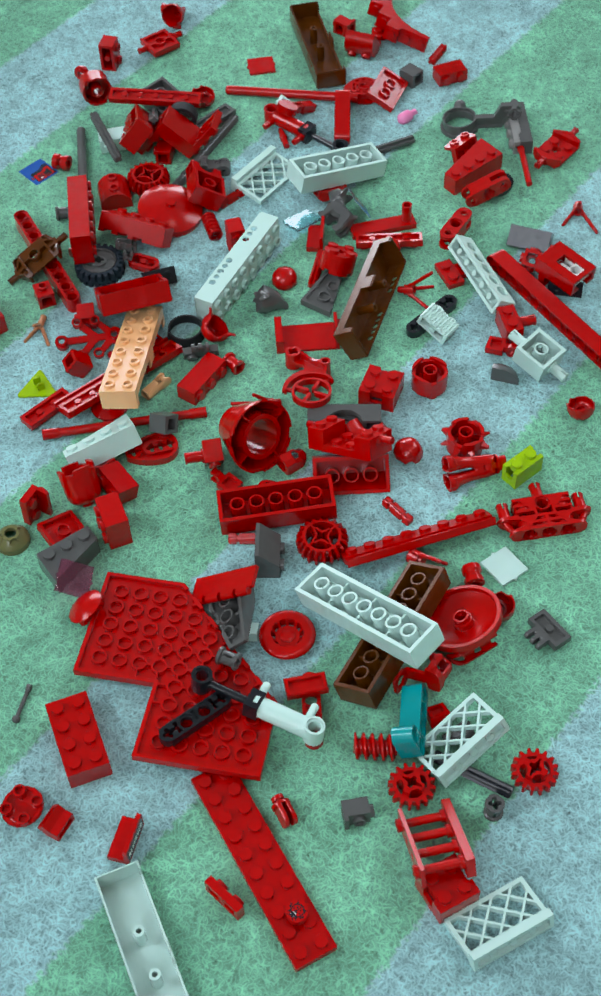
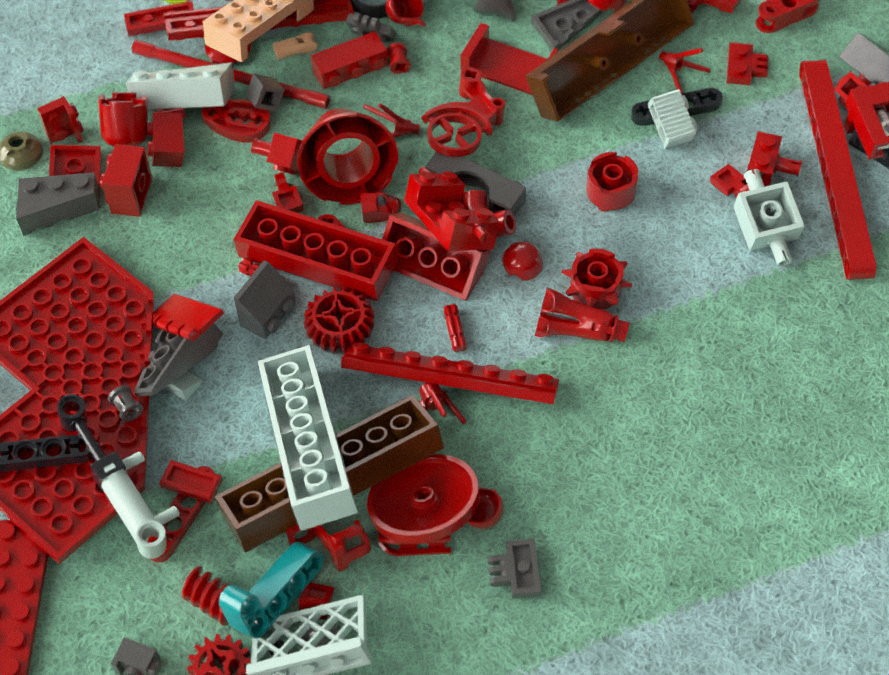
camera: 30 degrees right, 5 degrees up
(73, 578) = (40, 226): clear pink piece -> none
(86, 607) = (29, 264): red dish -> none
(284, 810) = (66, 602): red arm -> none
(287, 639) = (220, 415): red wheel -> none
(381, 388) = (544, 168): red piece -> none
(472, 574) = (481, 452): red wheel -> none
(480, 273) = (774, 79): light aqua brick -> none
(504, 373) = (711, 220): dark grey brick -> none
(504, 566) = (531, 461): light aqua piece -> none
(522, 466) = (641, 348): lime brick -> none
(543, 515) = (630, 435): red piece -> none
(580, 407) = (774, 309): red hair -> none

